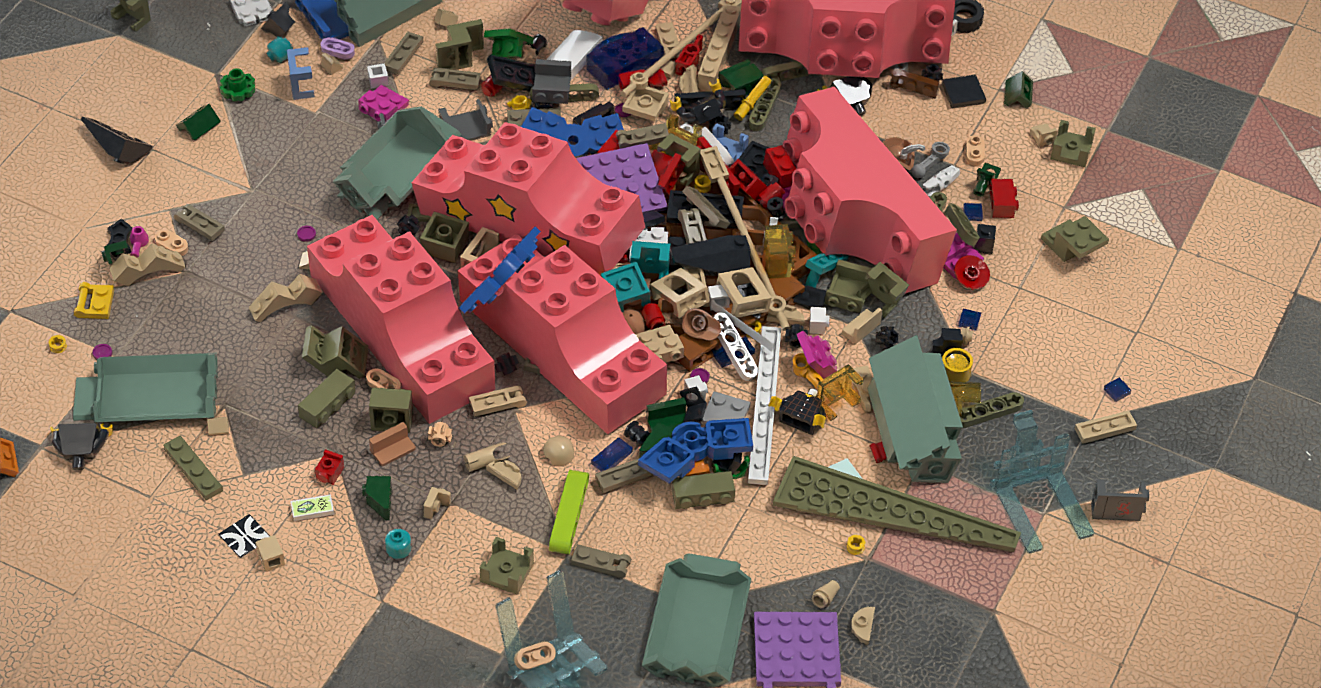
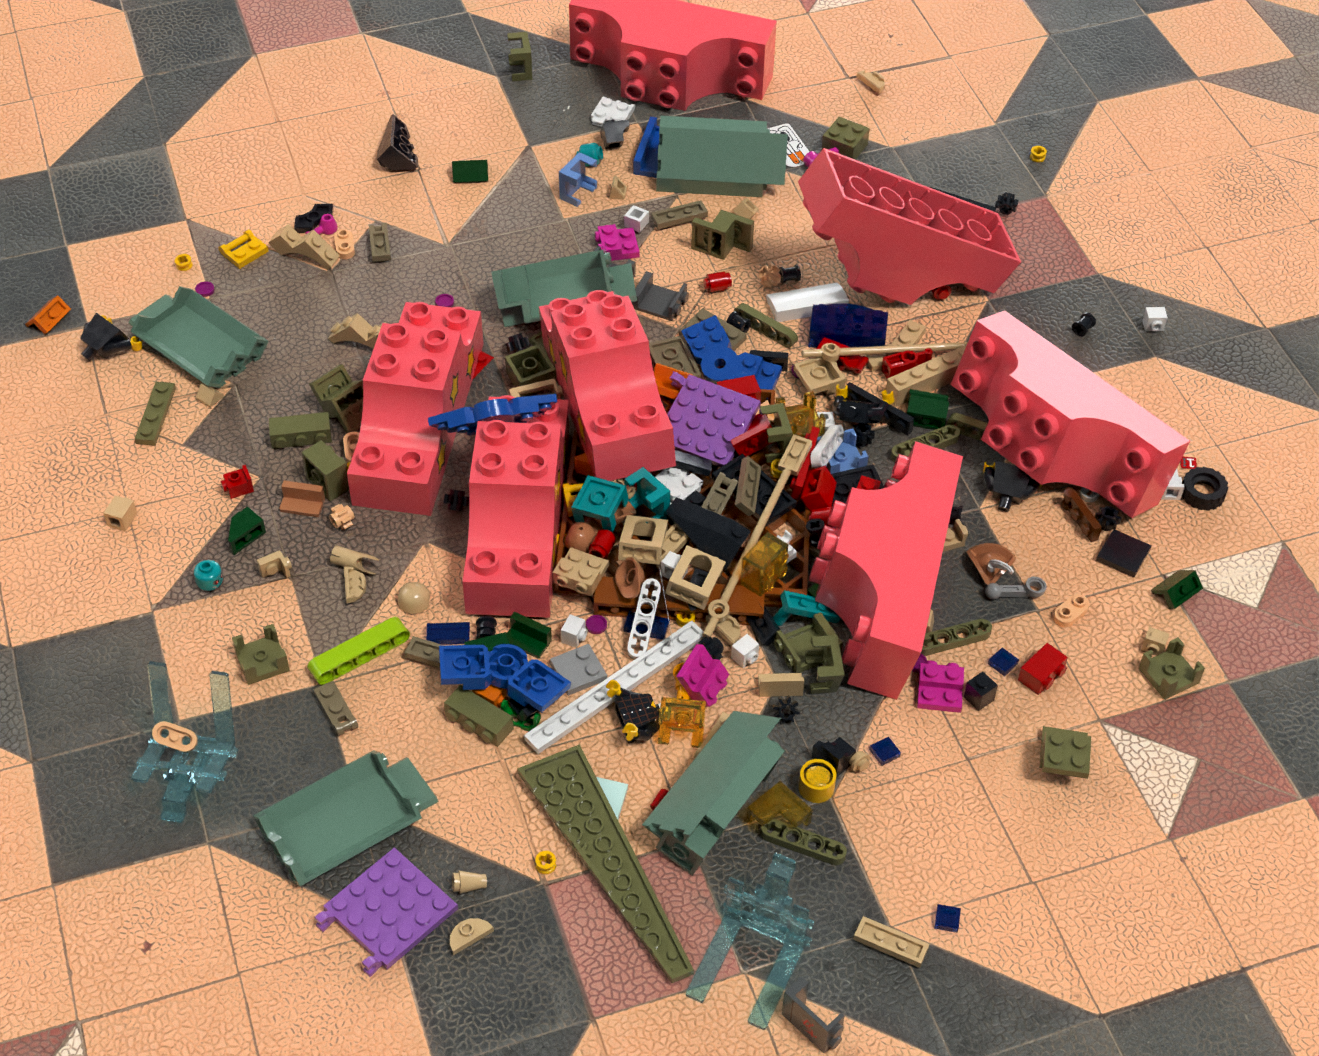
camera: 45 degrees right, 0 degrees up
(116, 248) = (282, 218): dark green bracket -> none
(237, 85) = (528, 161): green plant -> none
(243, 535) = (127, 486): sticker -> none
(312, 507) = (192, 503): tile -> none
(337, 48) = (635, 180): lavender plate -> none
(455, 79) = (694, 259): dark tan plate -> none
(497, 400) = (417, 524): tan plate -> none
(507, 42) = (762, 255): green bracket -> none
(511, 73) = (738, 282): black plate -> none
(520, 102) = (722, 310): yellow animal -> none
(552, 81) = (758, 308): dark grey panel -> none
(649, 135) = (765, 393): dark tan plate -> none
(688, 80) = (877, 383): tan plate -> none
(695, 408) = (555, 647): black bracket -> none
(747, 104) = (916, 430): yellow axle -> none
(941, 180) = (1003, 613): white hinge -> none
(962, 224) = (970, 662): olive beam -> none
(976, 267) = (937, 702): red dish -> none
(984, 178) = (1037, 643): dark green bracket -> none

